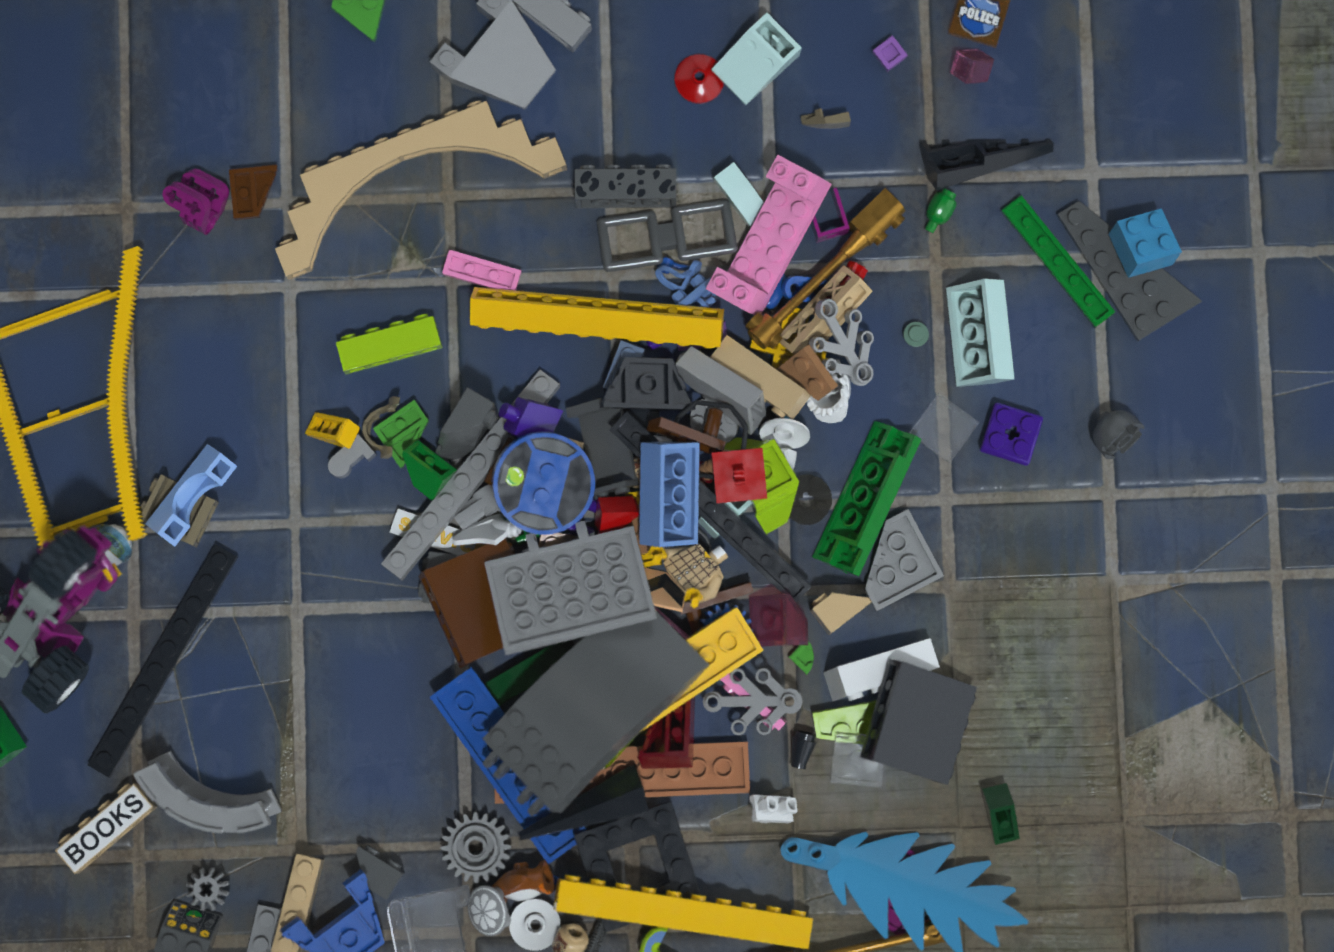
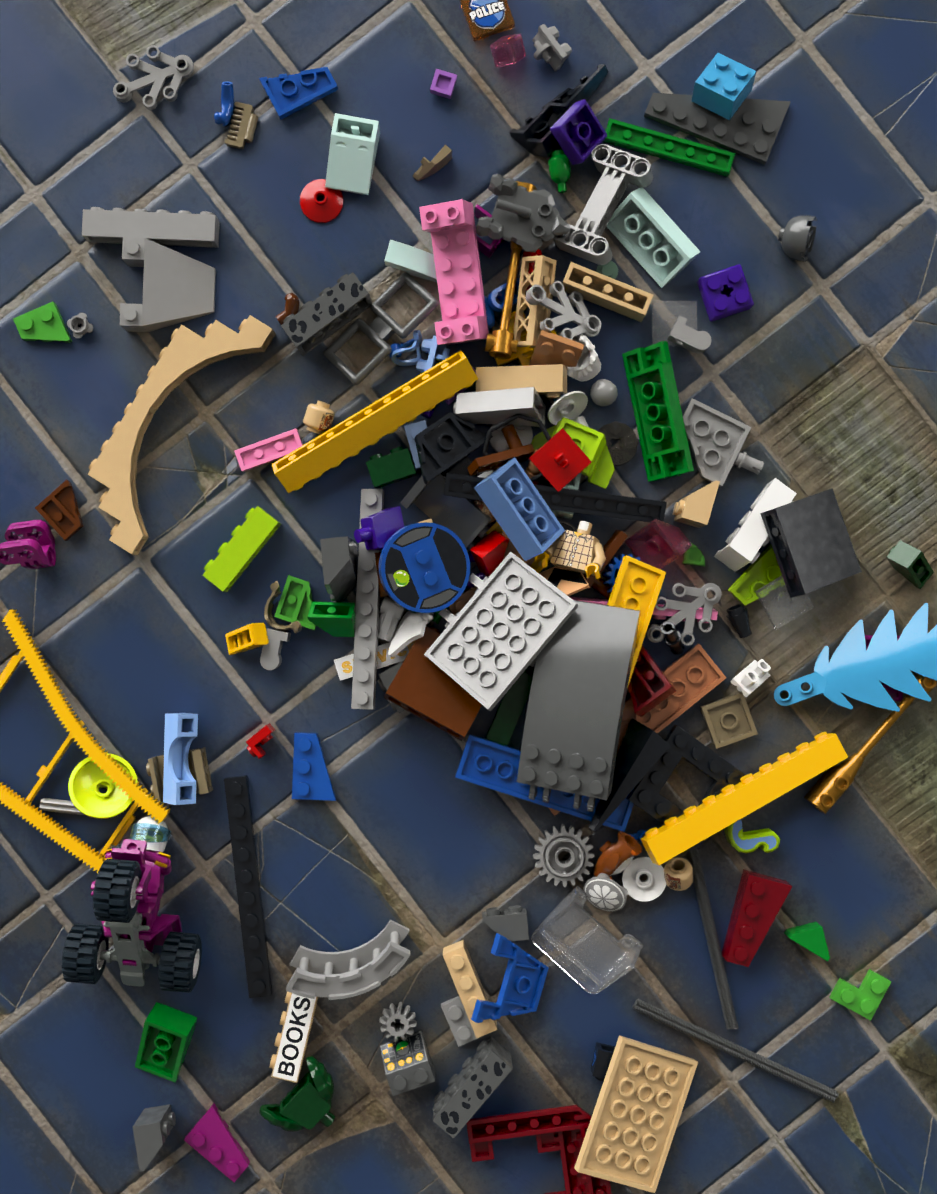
camera: 40 degrees left, 5 degrees up
(57, 469) = (57, 805): none -> light grey axle
(68, 900) = (305, 1103): none -> dark green torso
(90, 454) = (85, 786): none -> neon yellow dish
(279, 530) = (262, 737): none -> red bracket
(299, 595) = (310, 772): none -> blue wing
(396, 39) = (78, 319): none -> light grey plate
(549, 275) = (318, 417): none -> tan head
(581, 369) = (391, 467): none -> dark green brick
(598, 157) = (291, 307): none -> reddish brown arm
(723, 834) = (728, 720): none -> dark tan plate
(725, 717) = (672, 638): none -> black pin
(829, 444) = (603, 392): none -> light grey piece
(869, 227) = (521, 215): none -> dark grey shield
(899, 353) = (607, 292): none -> tan brick
(918, 607) = (748, 463): none -> light grey pin
(944, 451) = (688, 337): none -> light grey leg
(953, 269) = (604, 202): none -> light grey beam
(991, 196) = (578, 132): none -> dark purple brick
(1010, 91) = (548, 47): none -> light grey hips

